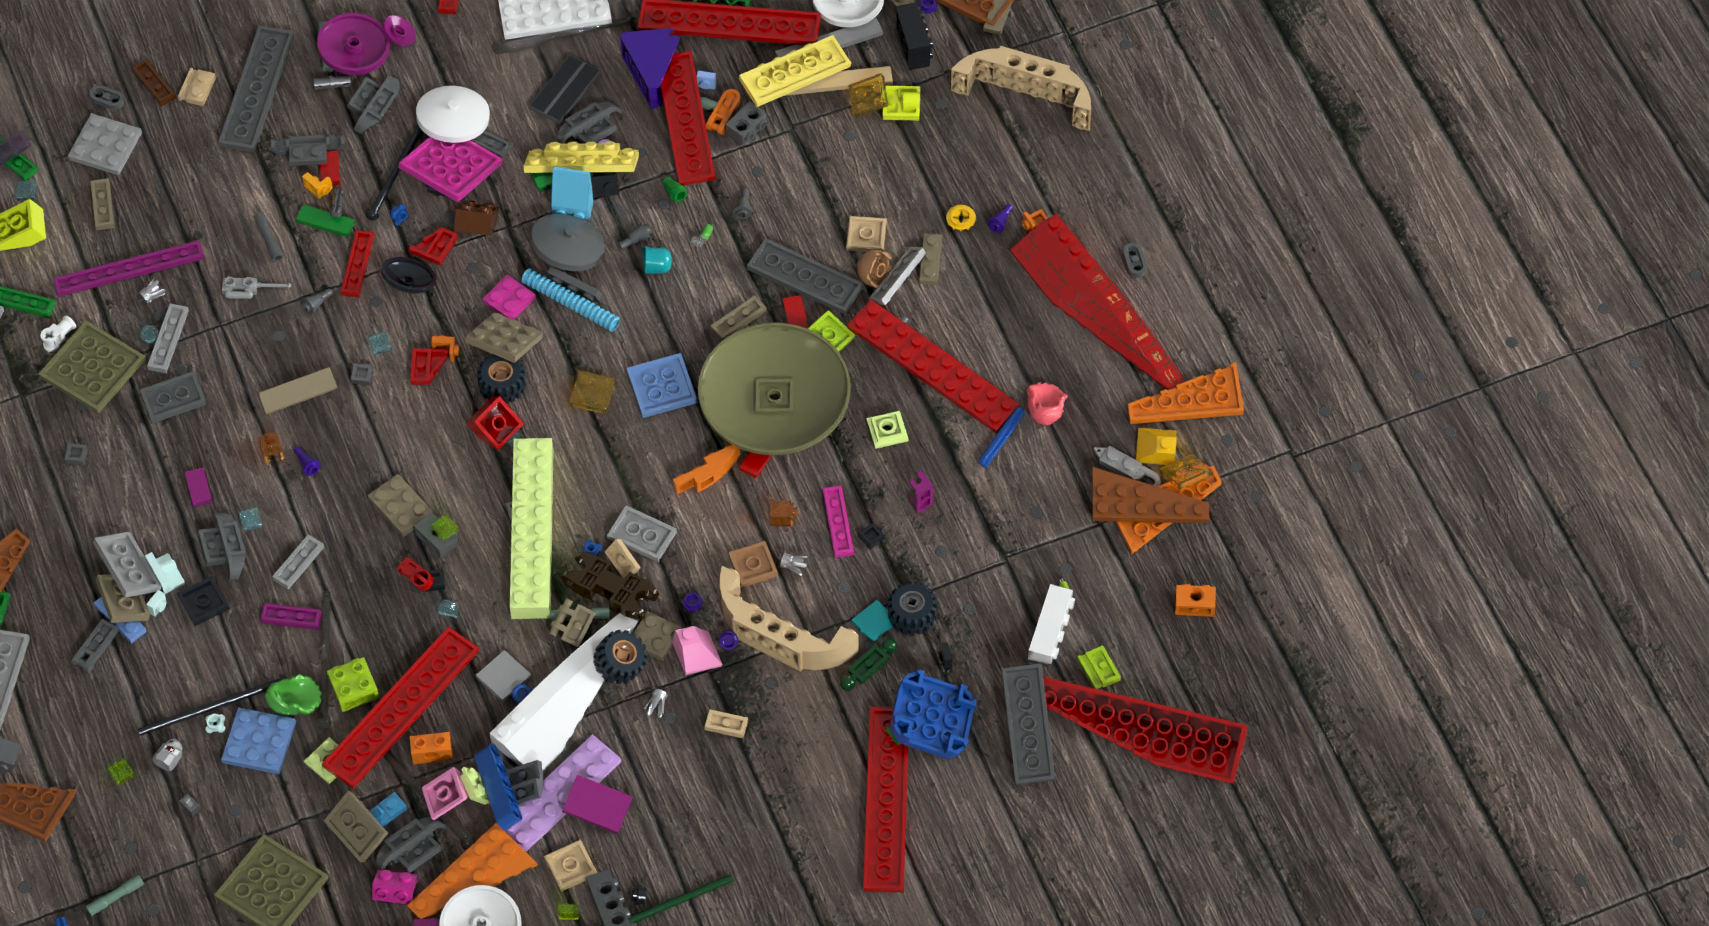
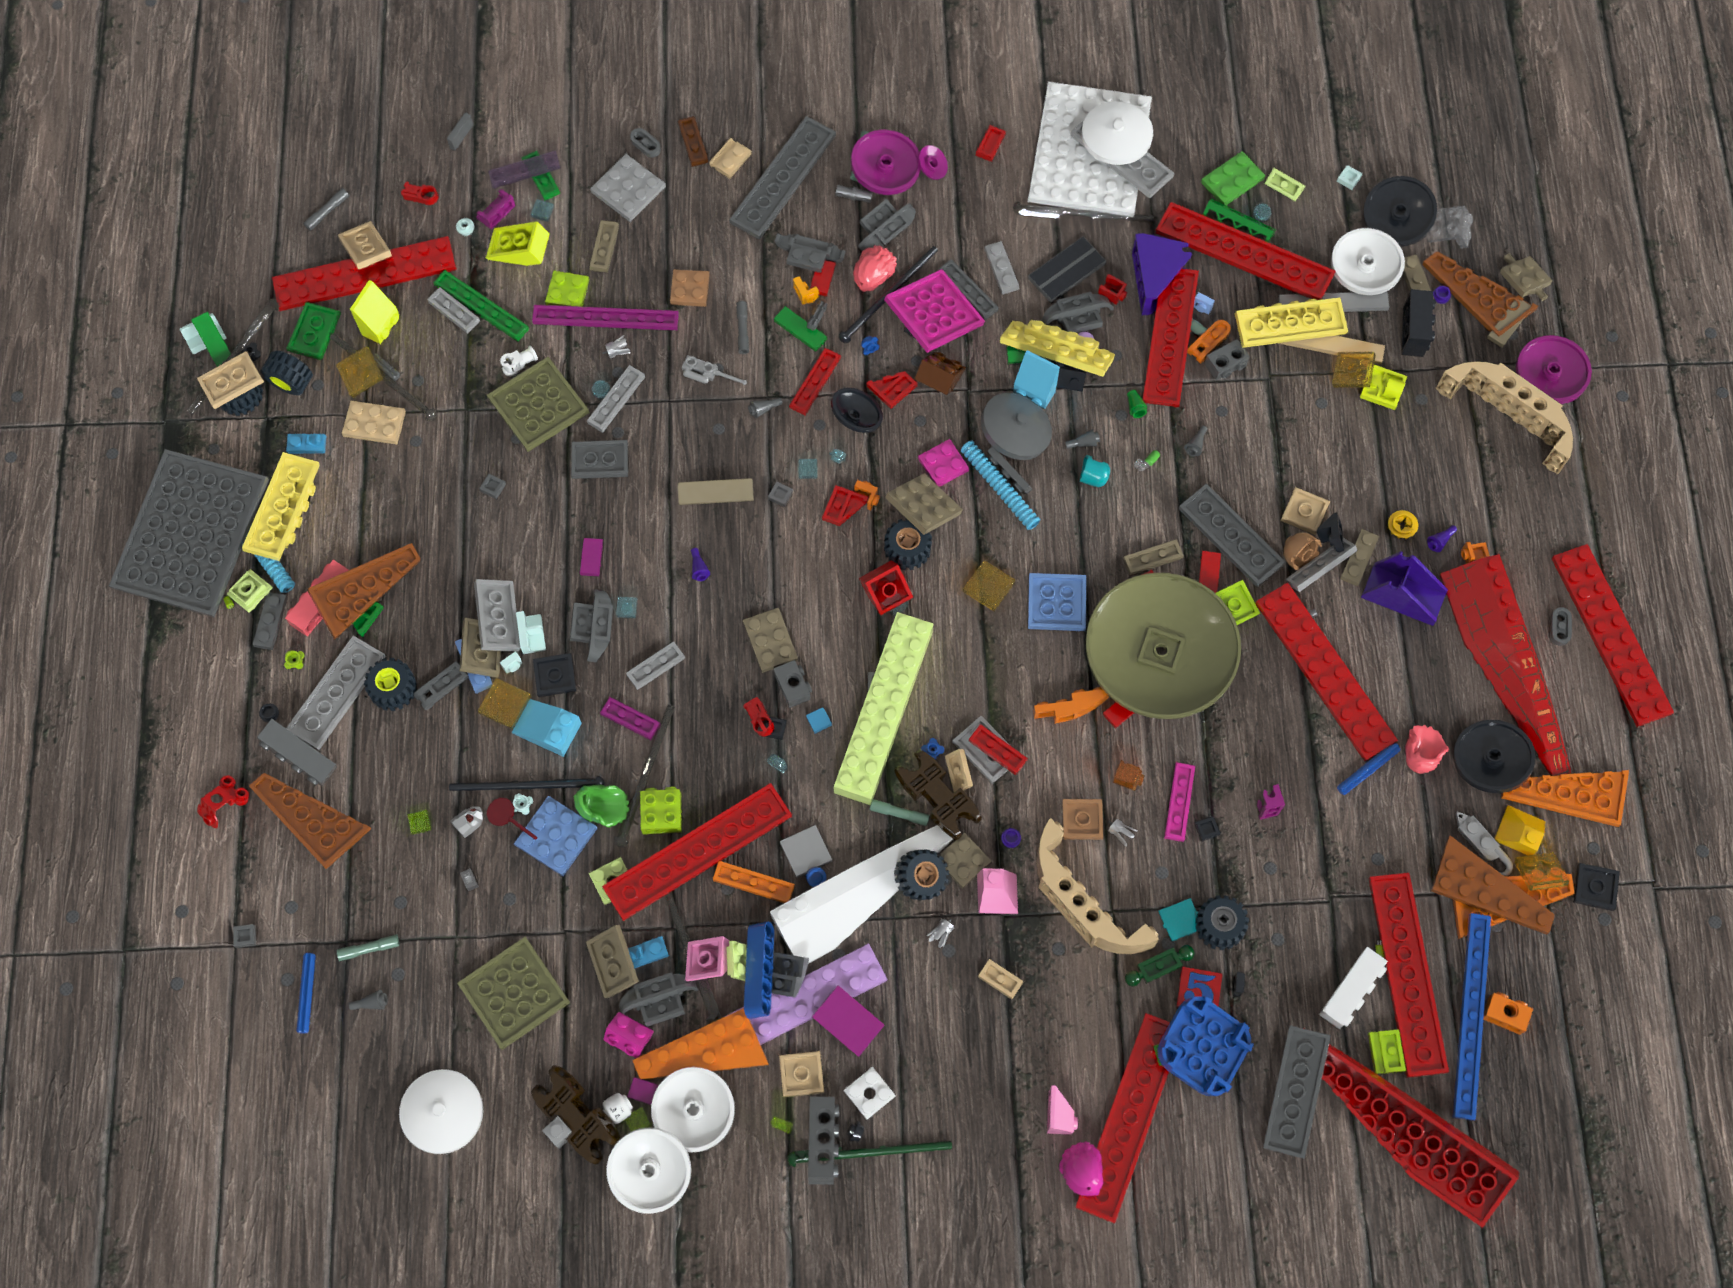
camera: 20 degrees right, 10 degrees up
(45, 659) = (390, 684): none -> black wheel
(80, 254) = (567, 289): none -> lime plate
(164, 641) = (504, 703): none -> clear yellow plate
(199, 736) = (501, 812): none -> dark red piece
(202, 217) = (689, 288): none -> medium nougat plate
(214, 647) = (547, 726): none -> medium azure slope
(271, 445) = (671, 531): clear orange window -> none
(377, 144) = (874, 268): none -> coral piece
(404, 322) = (837, 455): none -> clear light blue plate
(431, 748) = (711, 903): orange brick -> none
(444, 527) = (801, 681): clear neon green tile -> none
(452, 114) = (953, 261): white dish -> none
(463, 717) = (753, 882): none -> orange plate
(473, 560) = (819, 720): none -> dark azure tile
(501, 107) = (1001, 267): none -> light grey plate
(577, 625) = (893, 825): dark tan plate -> none
(616, 93) = (1115, 285): none -> red window
(636, 849) = (869, 1080): none -> white piece
(652, 527) = (998, 749): none -> red plate
(728, 640) = (1032, 891): dark purple plate -> none
(821, 815) = (1060, 1114): none -> bright pink slope
(855, 851) = (1082, 1169): none -> dark pink piece
(886, 438) = (1251, 729): yellowish green piece -> none
(897, 244) = (1332, 532): none -> black slope
(908, 664) = (1199, 984): none -> red tile
(981, 270) = (1405, 587): none -> dark purple ladder
(1054, 36) = (1555, 367): none -> magenta dish
(1096, 597) = (1408, 975): none -> red plate
(1110, 388) = (1494, 756): none -> black dish
(1164, 612) = (1472, 1017): none -> blue plate
(1184, 253) = (1612, 635): none -> red plate
(1239, 470) = (1596, 887): none -> black plate

